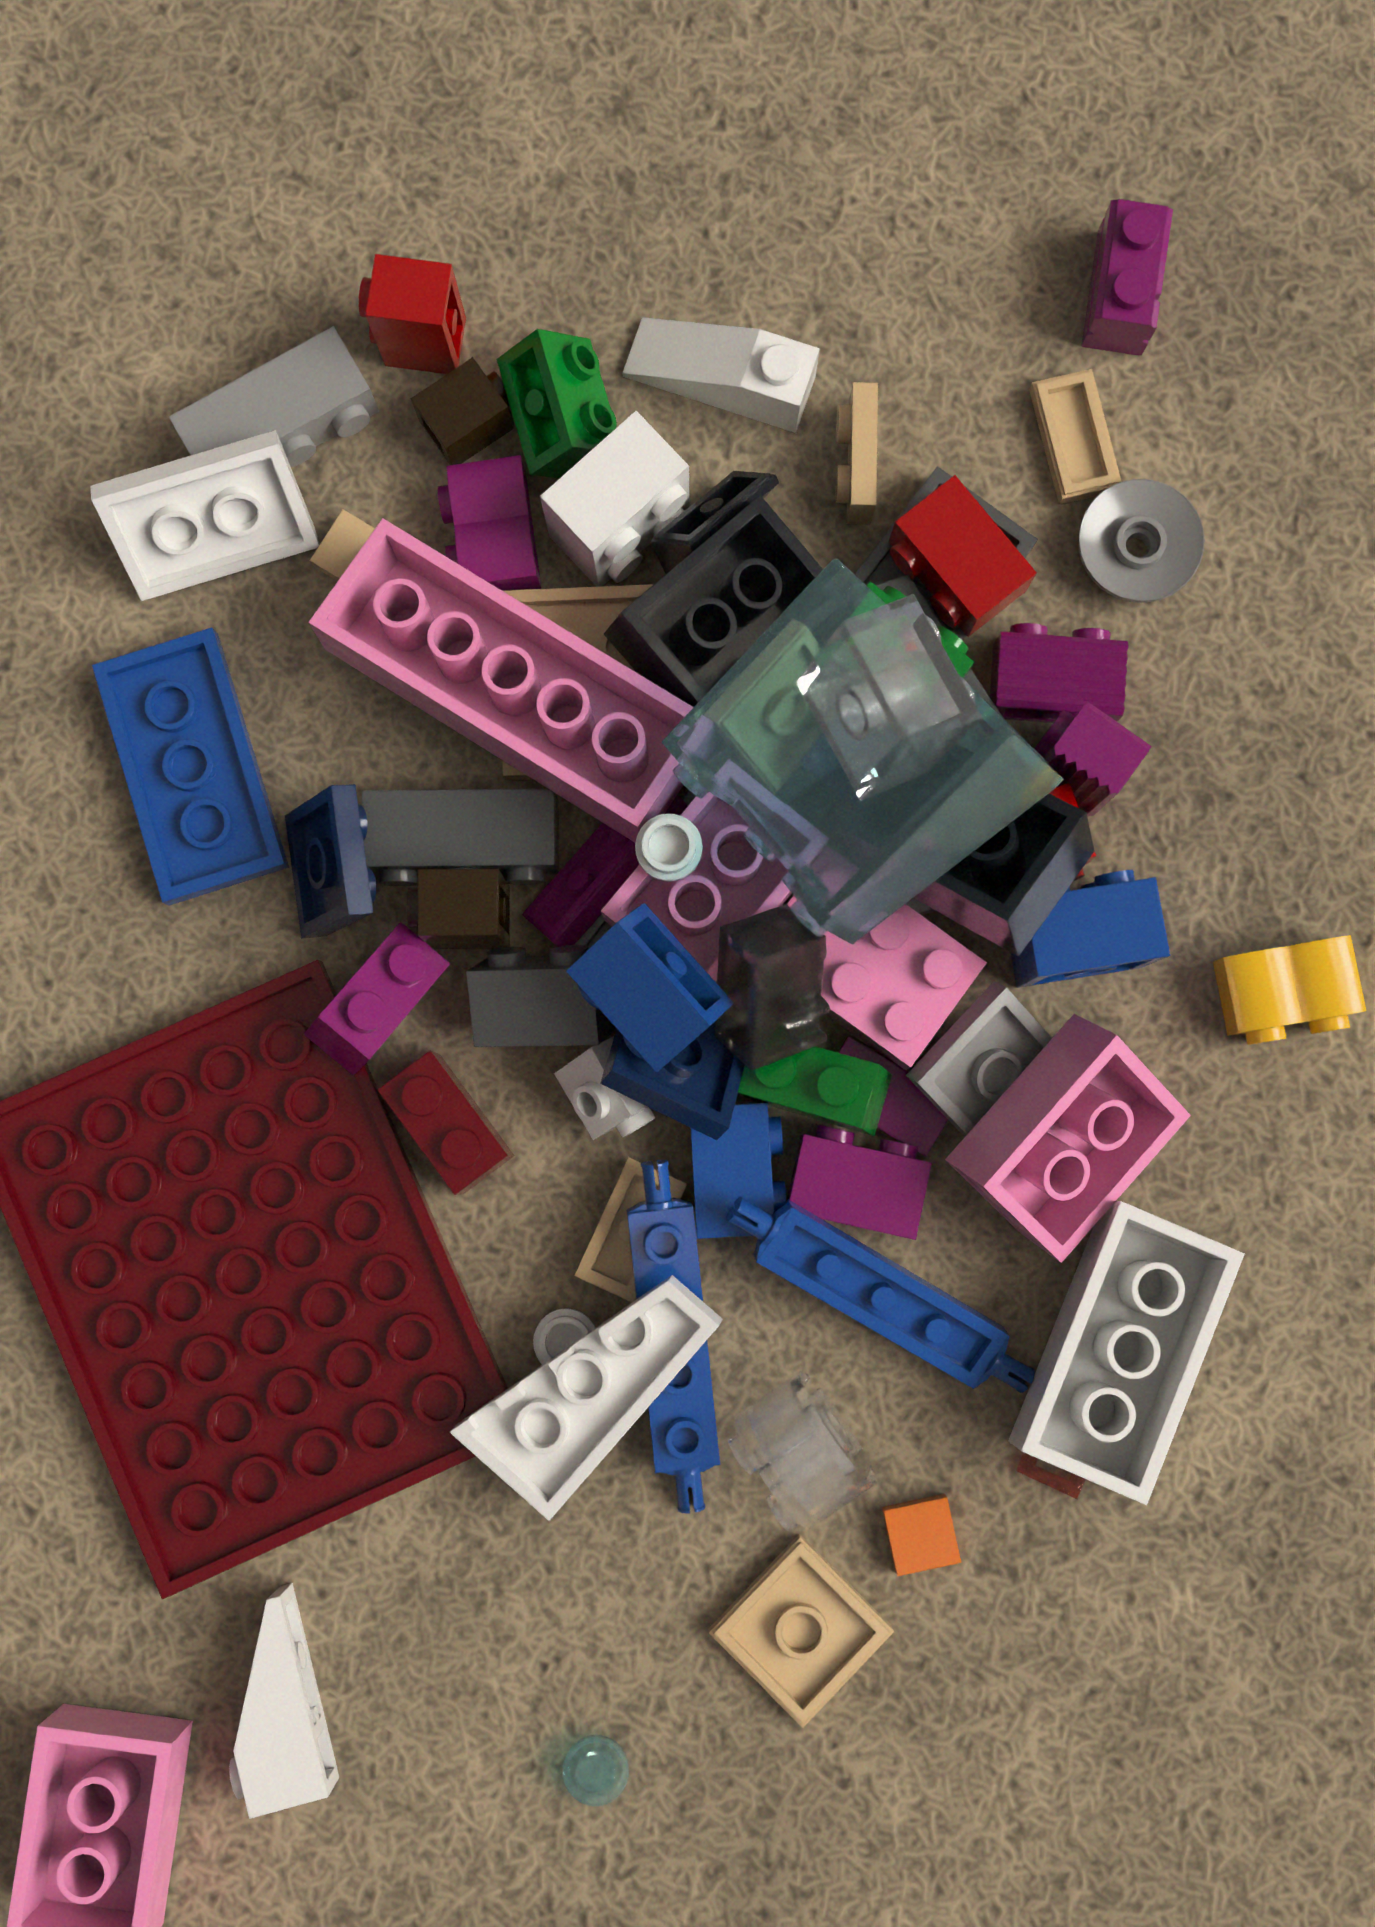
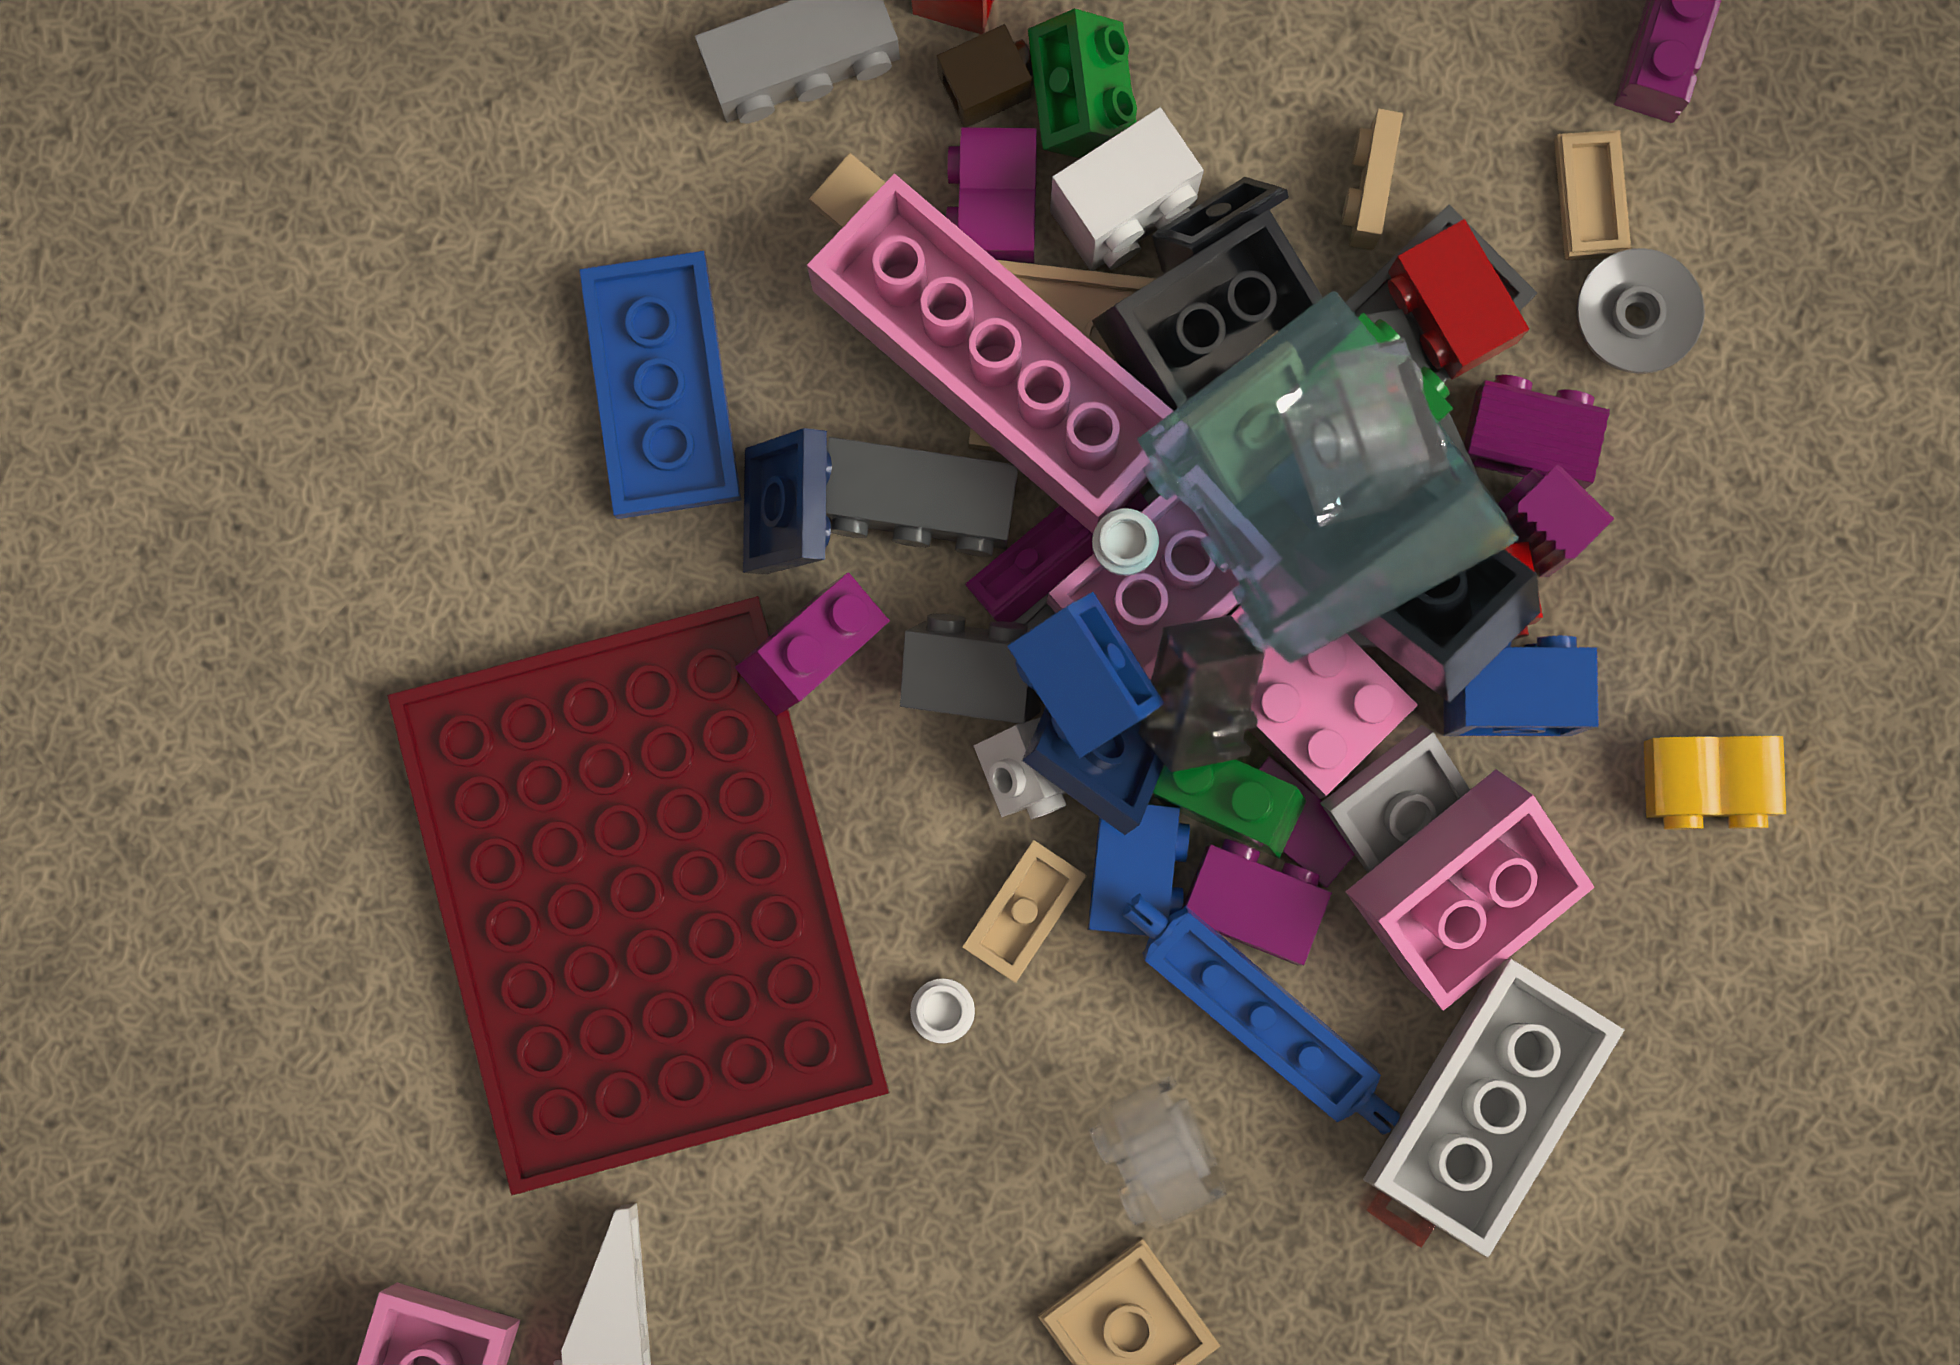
camera: 10 degrees right, 0 degrees up
(205, 515) = (716, 140): white plate -> none
(446, 1122) = (859, 777): dark red brick -> none
(460, 908) = (908, 569): dark brown brick -> none
(579, 1404) = (949, 1071): white wing -> none
(684, 1412) = (1050, 1021): blue plate -> none
(726, 368) = (1253, 71): white slope -> none
(921, 1534) = (1262, 1257): orange tile -> none

